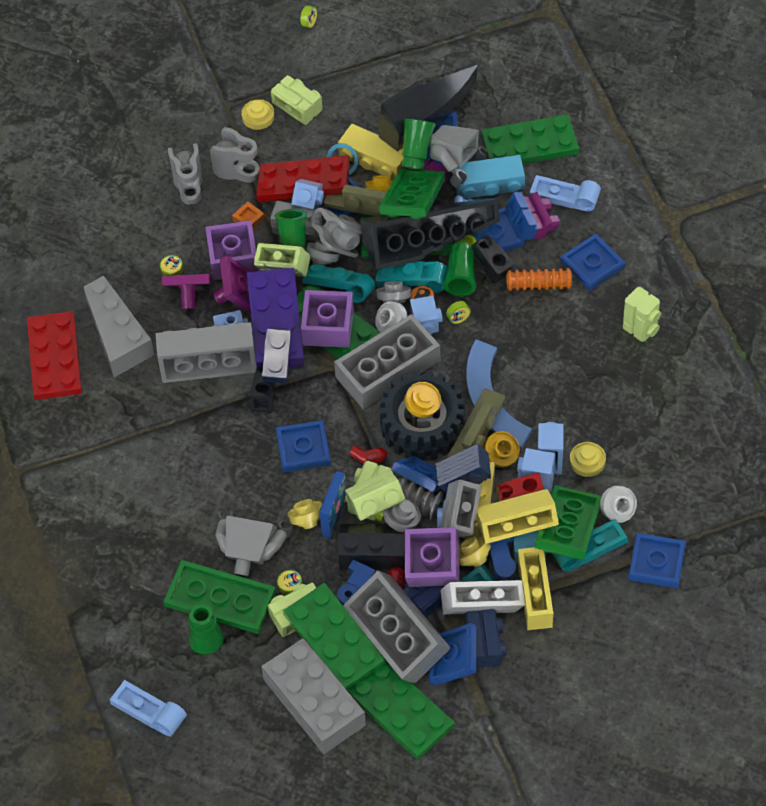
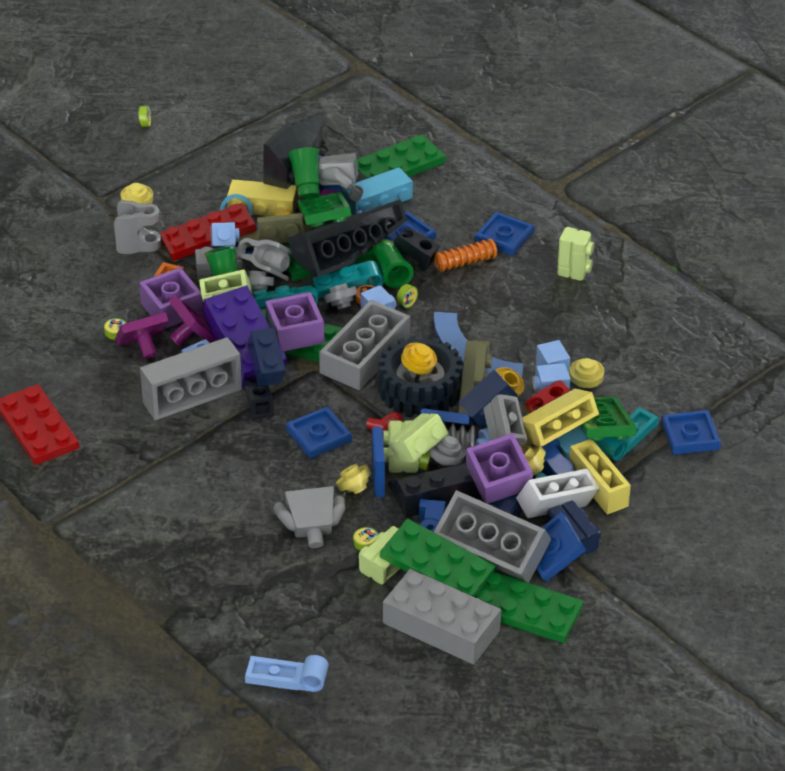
camera: 25 degrees left, 15 degrees down
(119, 331) = (90, 384): light grey wedge -> none
(187, 173) = (92, 251): light grey piece -> none
(204, 633) = (308, 594): green plant -> none
(232, 598) = (306, 566): green plate -> none
(297, 99) = (168, 177): yellowish green brick -> none
(389, 314) = (346, 310): white plate -> none
(531, 215) = (432, 210): hips -> none
(567, 194) = (452, 190): light blue plate -> none
(618, 503) = (634, 394): white plate -> none

